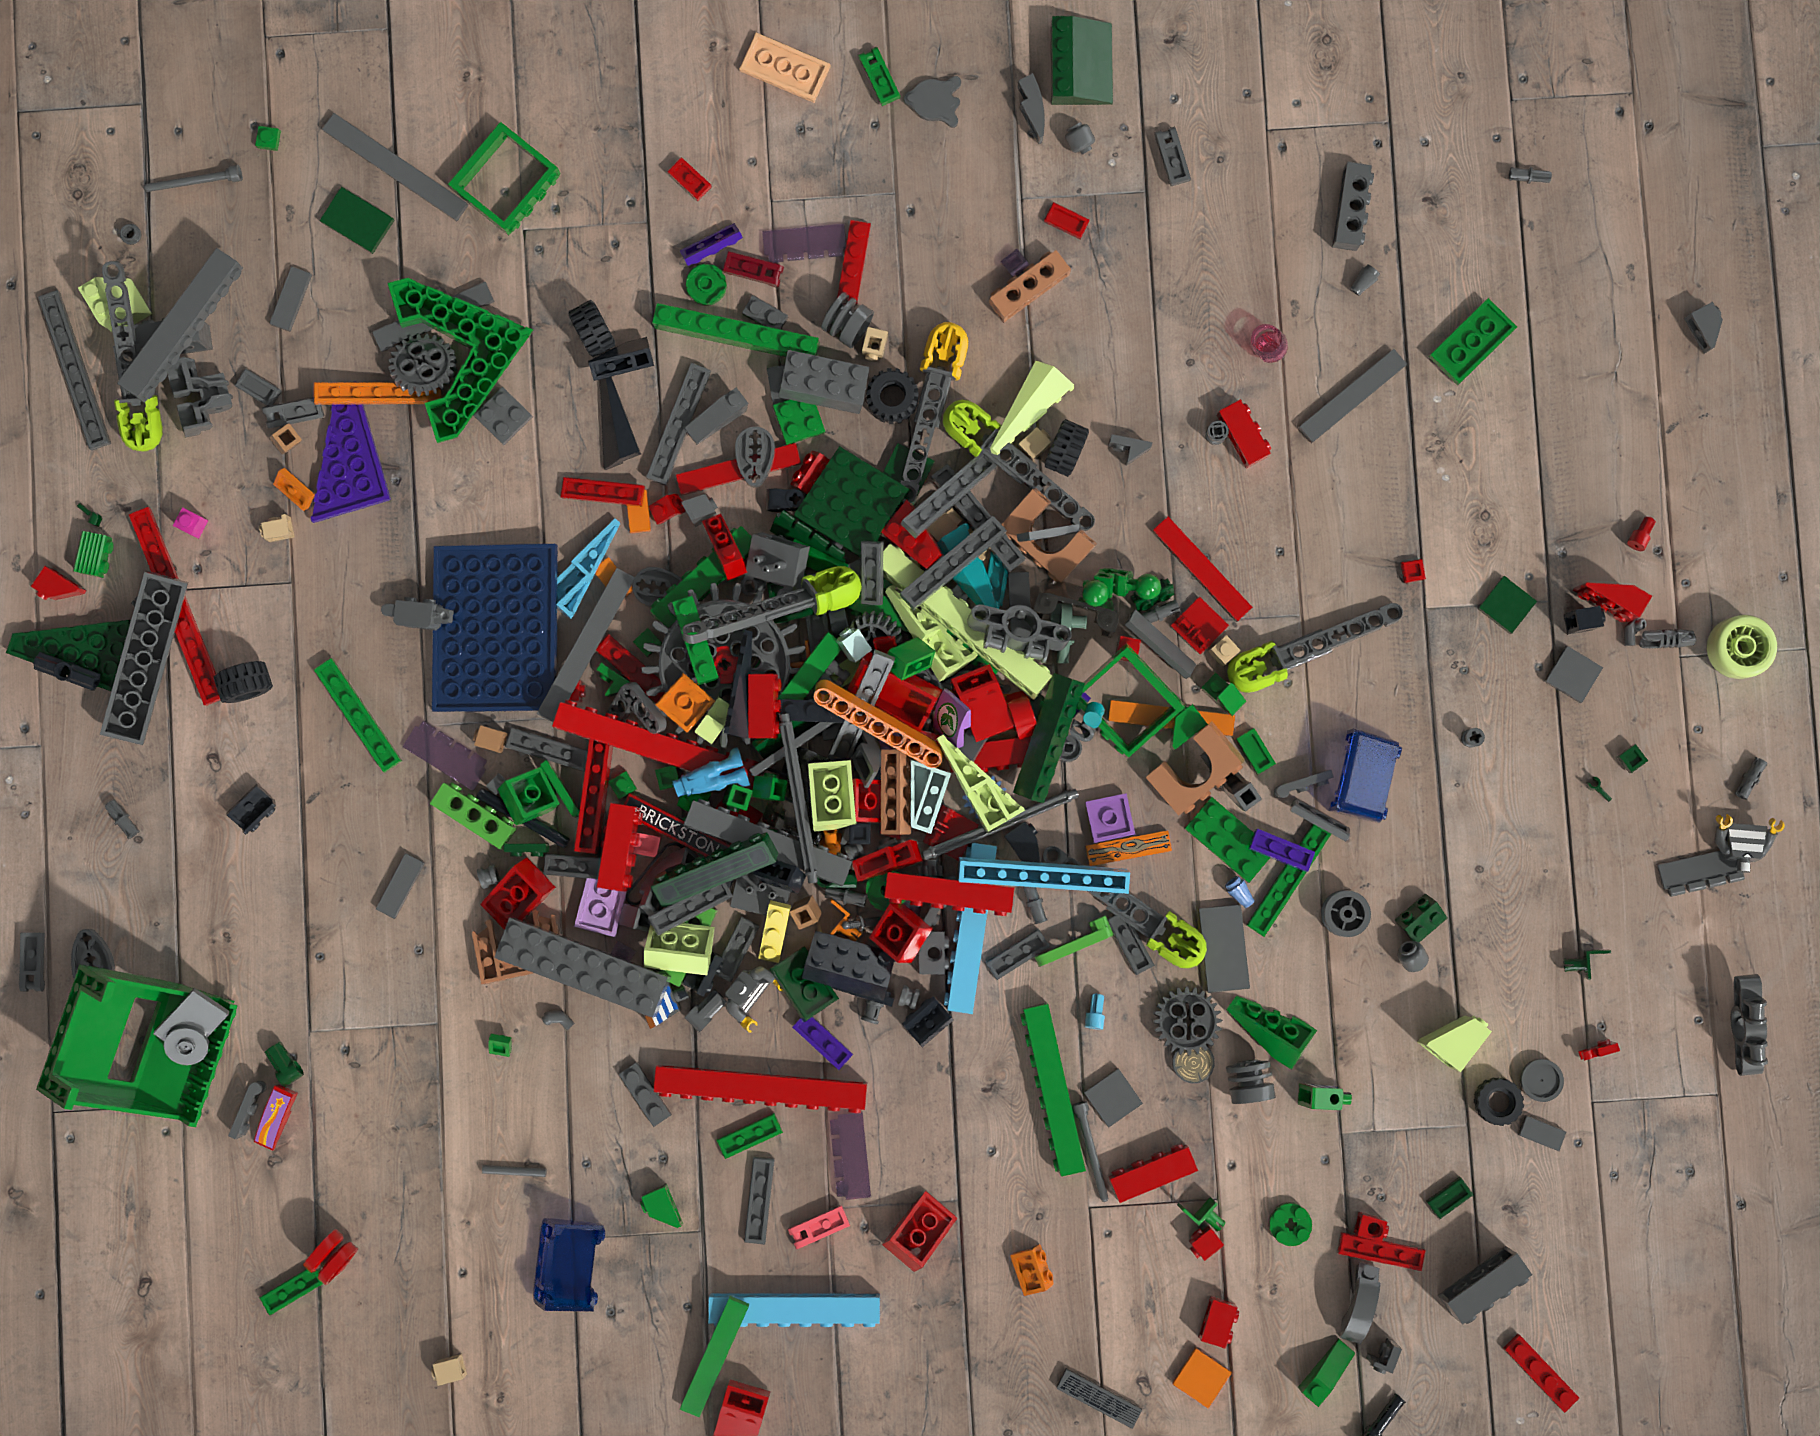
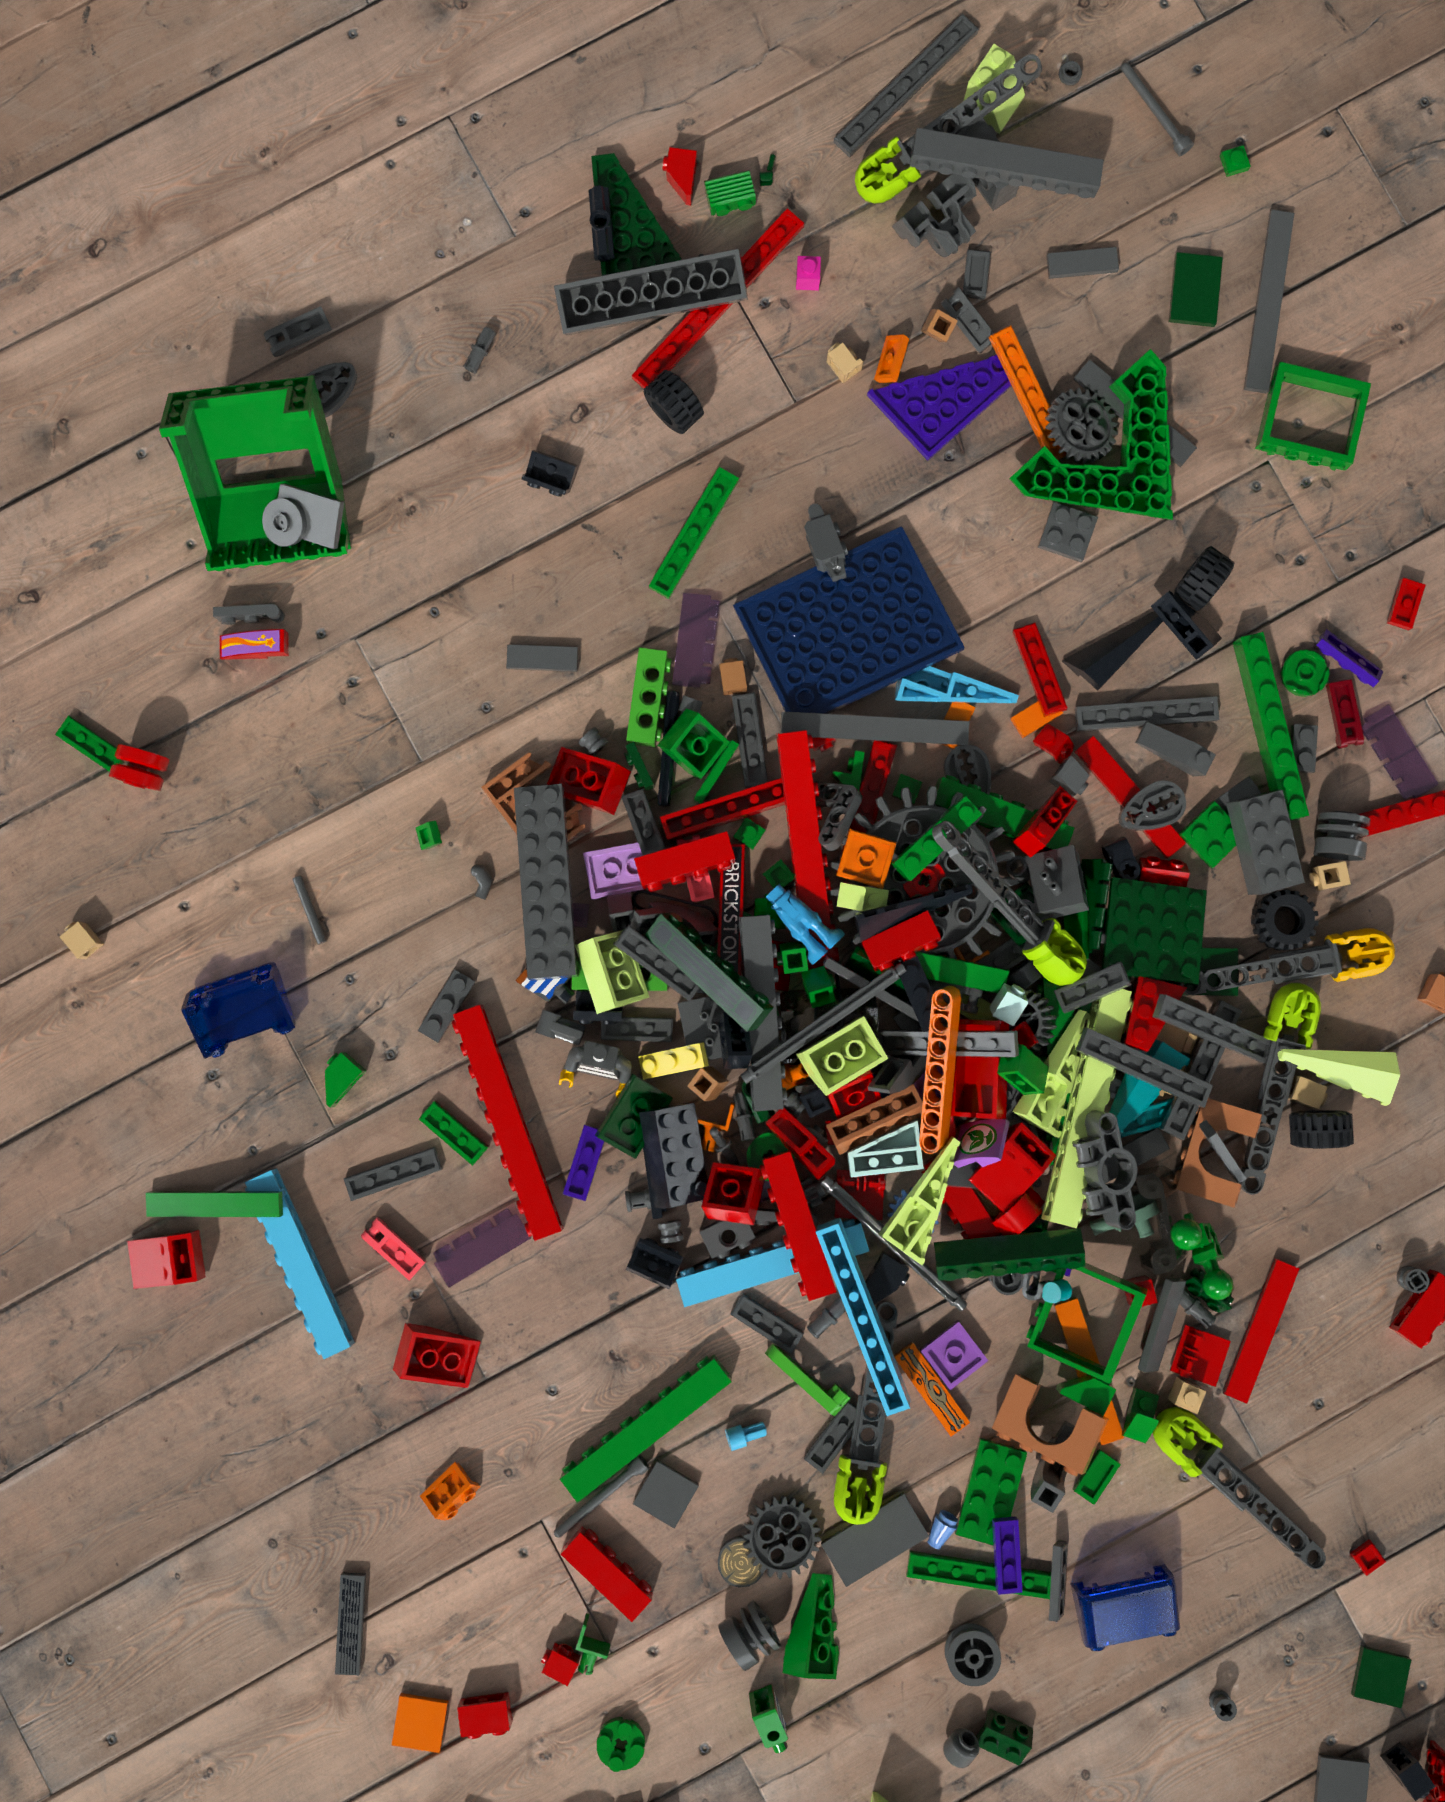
camera: 65 degrees right, 0 degrees up
(286, 1068) = (306, 634): dark green piece -> none
(1135, 446) = (1355, 1199): dark grey slope -> none
(1303, 784) = (1086, 1544): dark grey plate -> none

